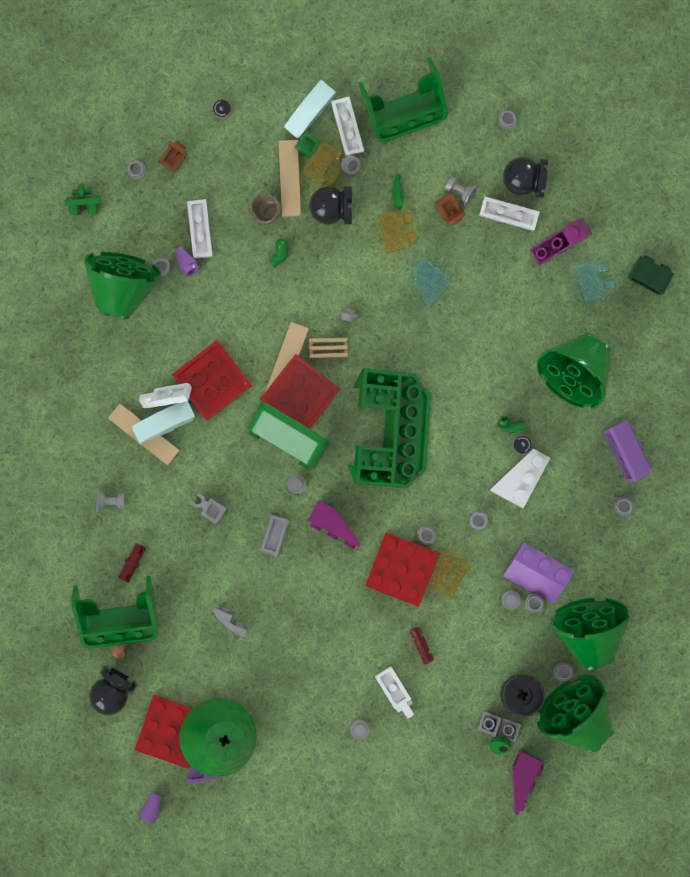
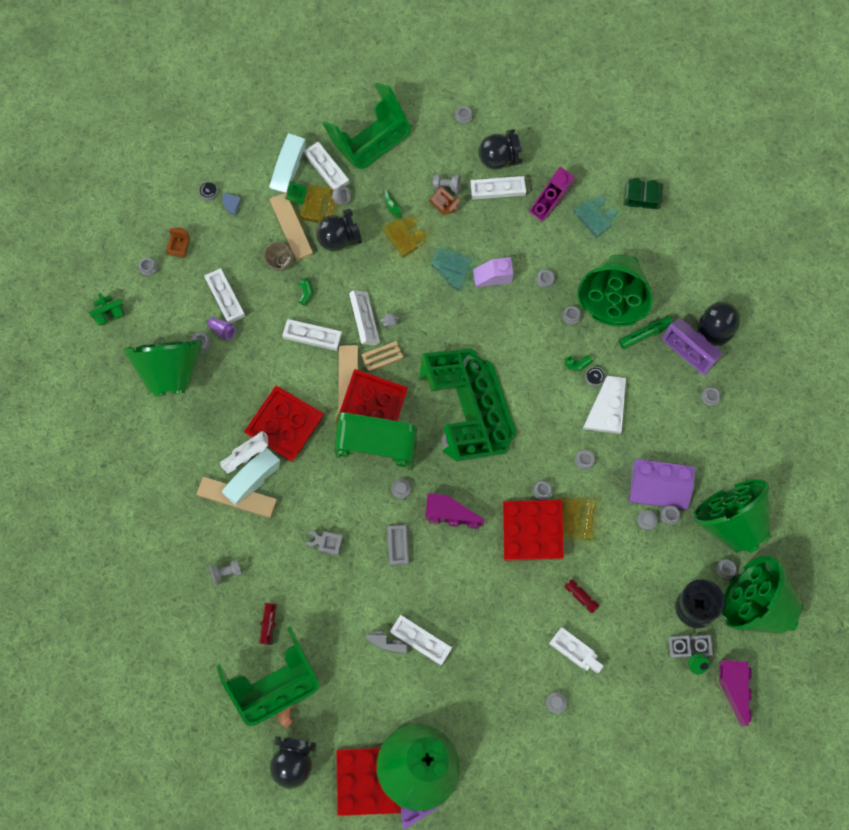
camera: 25 degrees left, 15 degrees down
(240, 130) = (231, 203): none -> sand blue tile
(262, 629) = (420, 640): none -> white plate
(269, 301) = (312, 335): none -> white plate
(325, 302) = (364, 317): none -> white plate
(467, 303) = (494, 272): none -> lavender slope
(516, 327) = (545, 278): none -> light grey tile
(525, 374) = (571, 315): none -> light grey plate
(610, 417) = (653, 328): none -> green pin
(662, 439) = (719, 323): none -> black tile

